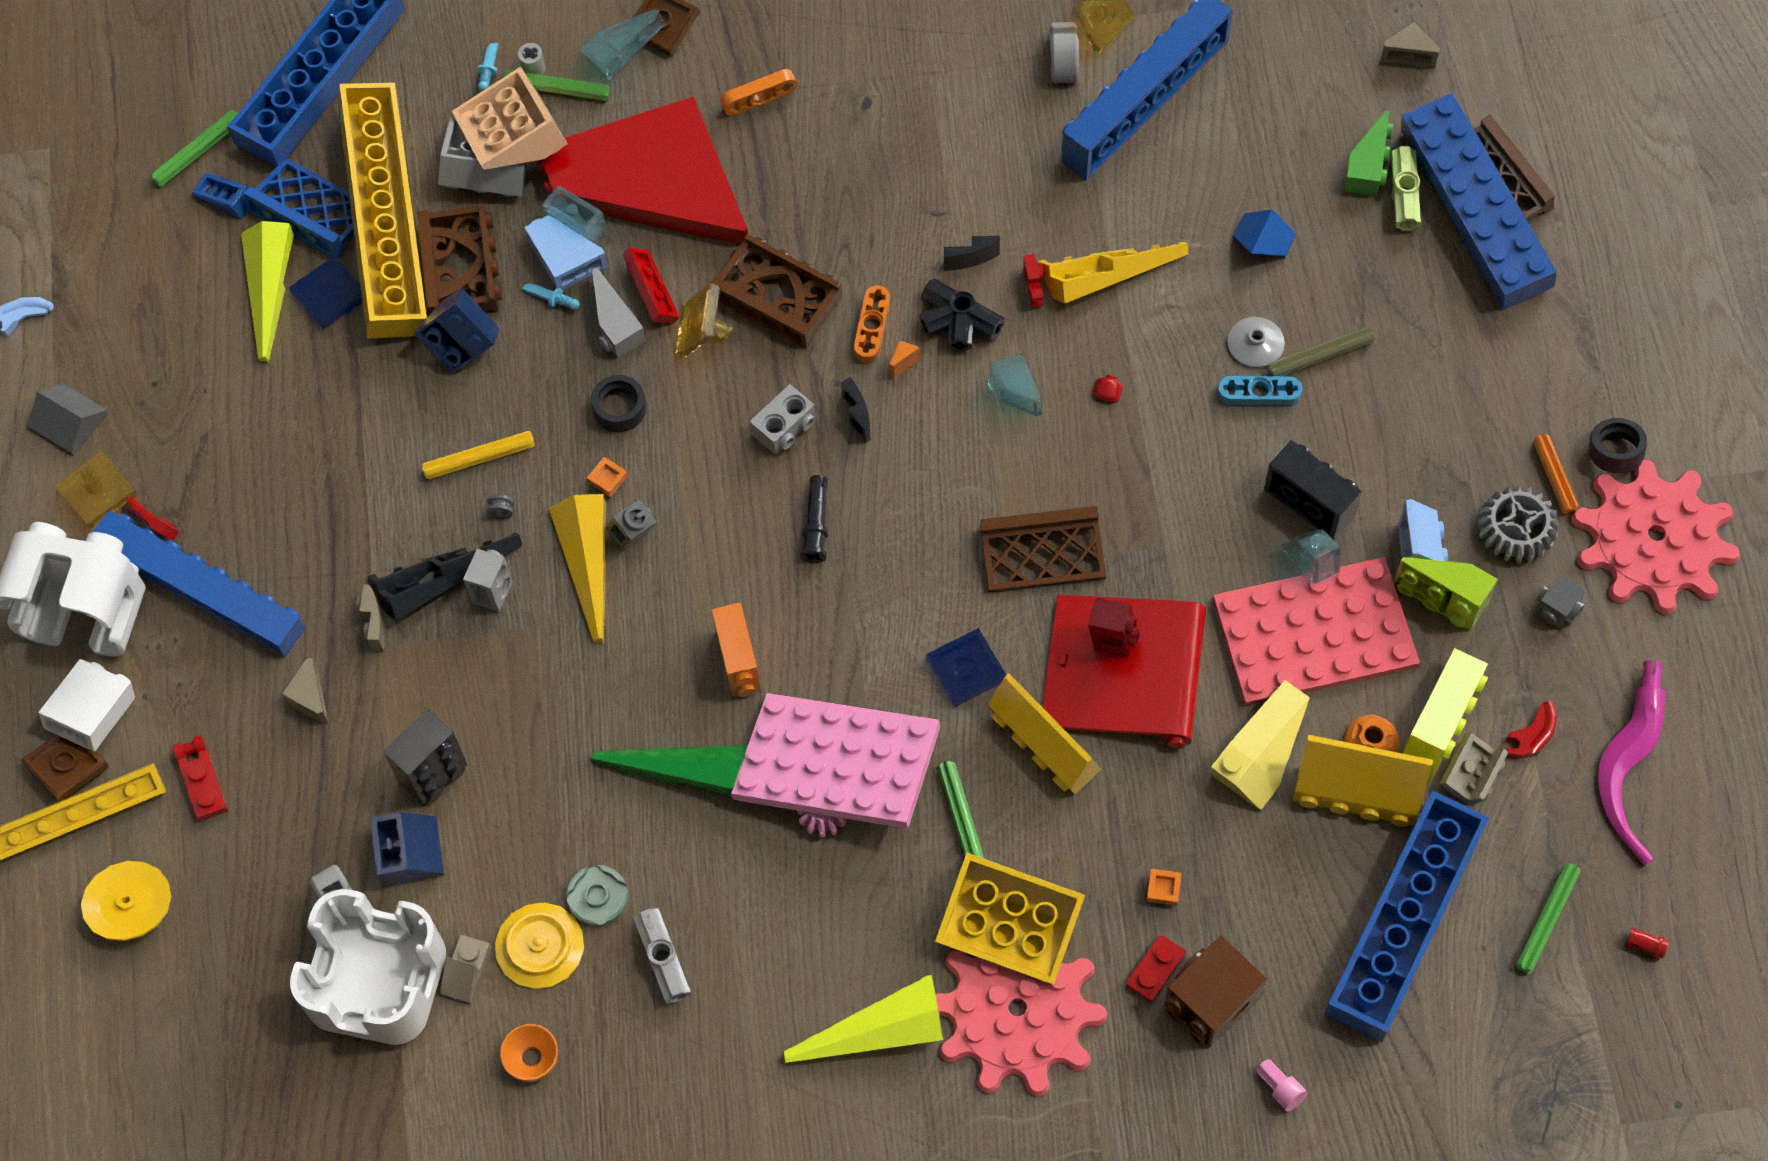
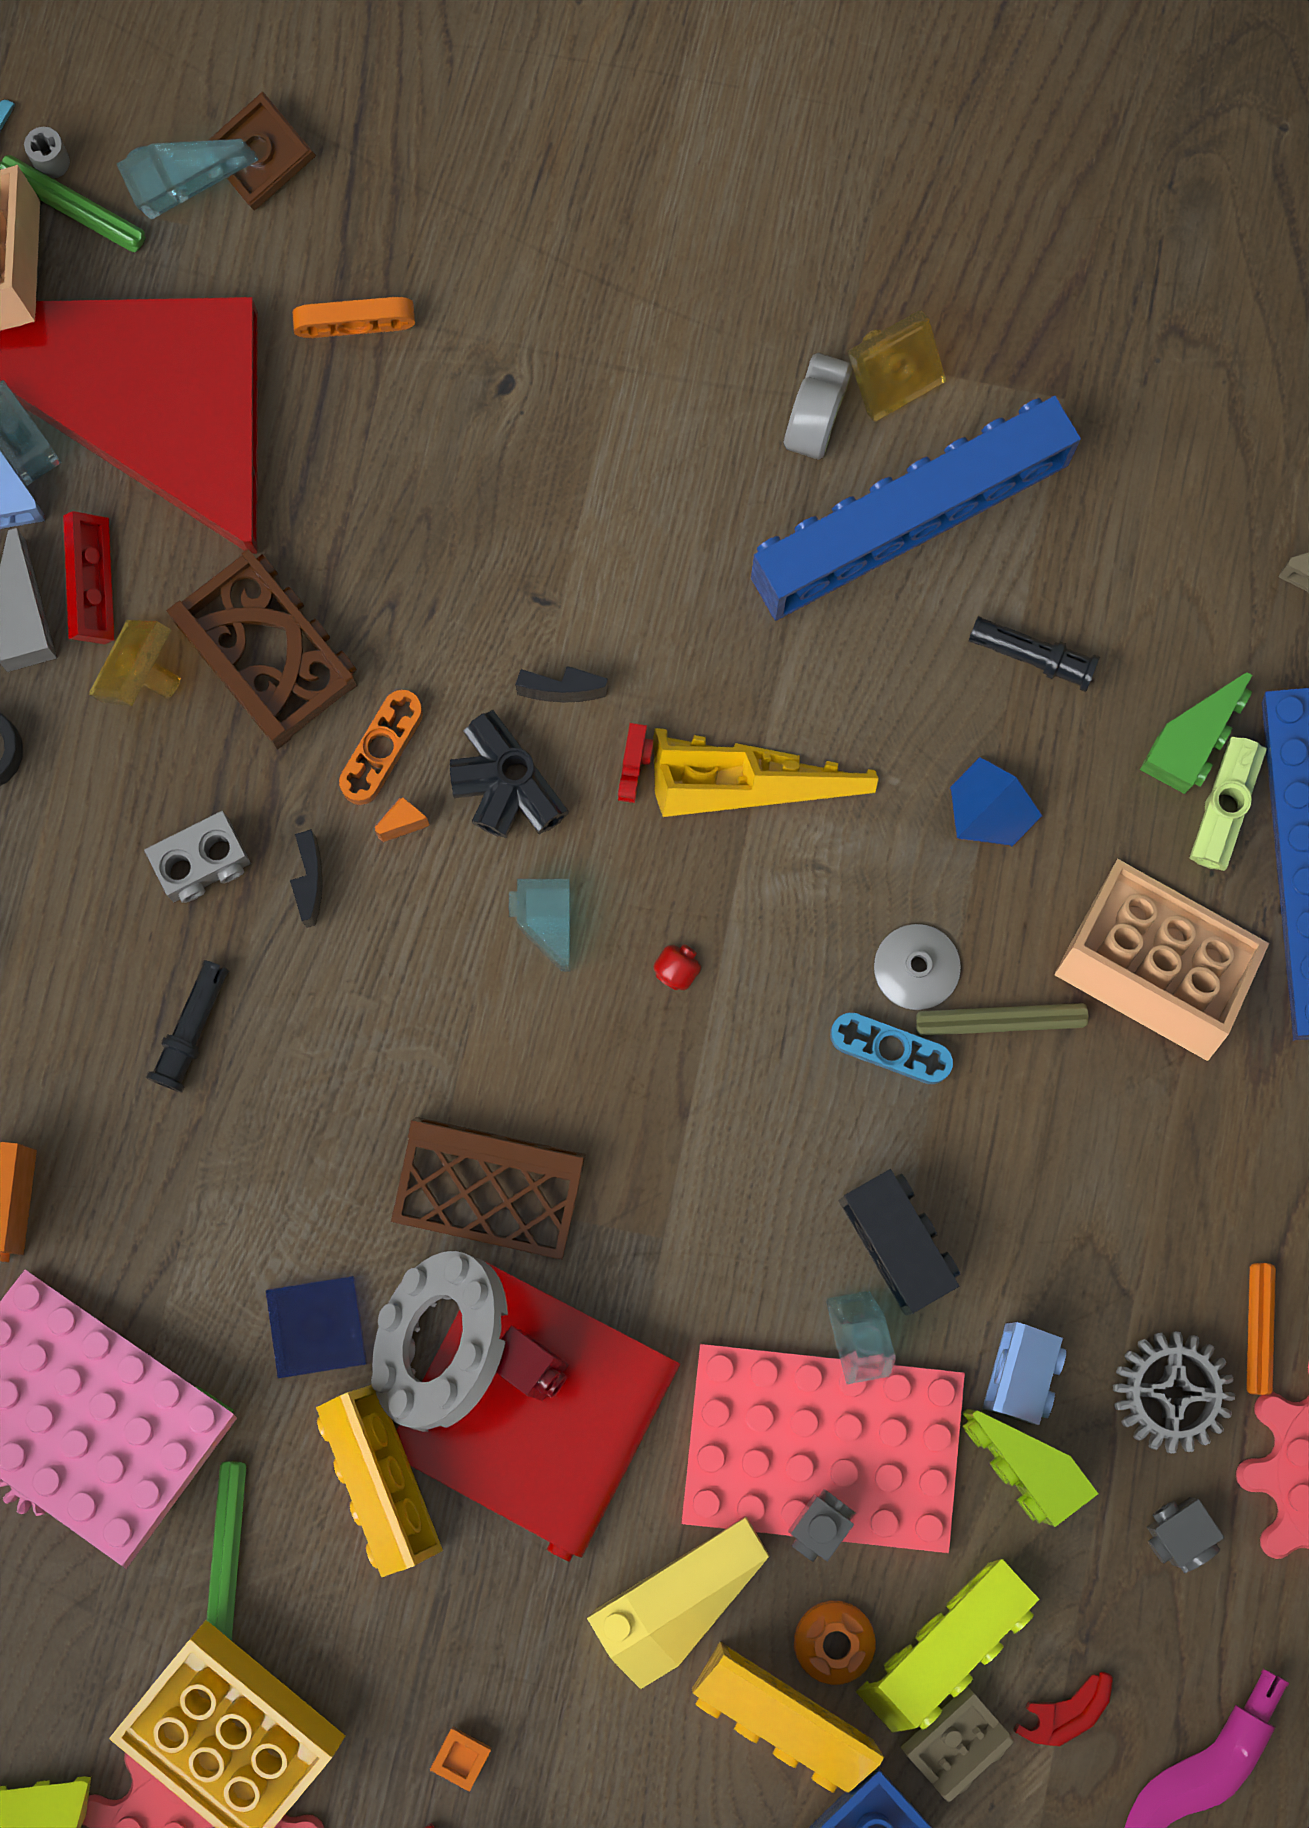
camera: 15 degrees right, 15 degrees up
(1083, 620) = (465, 1381): none -> light grey plate
(1265, 144) = (1053, 659): none -> black pin
(1335, 663) = (821, 1526): none -> dark grey brick
(1404, 288) = (1163, 960): none -> light nougat slope

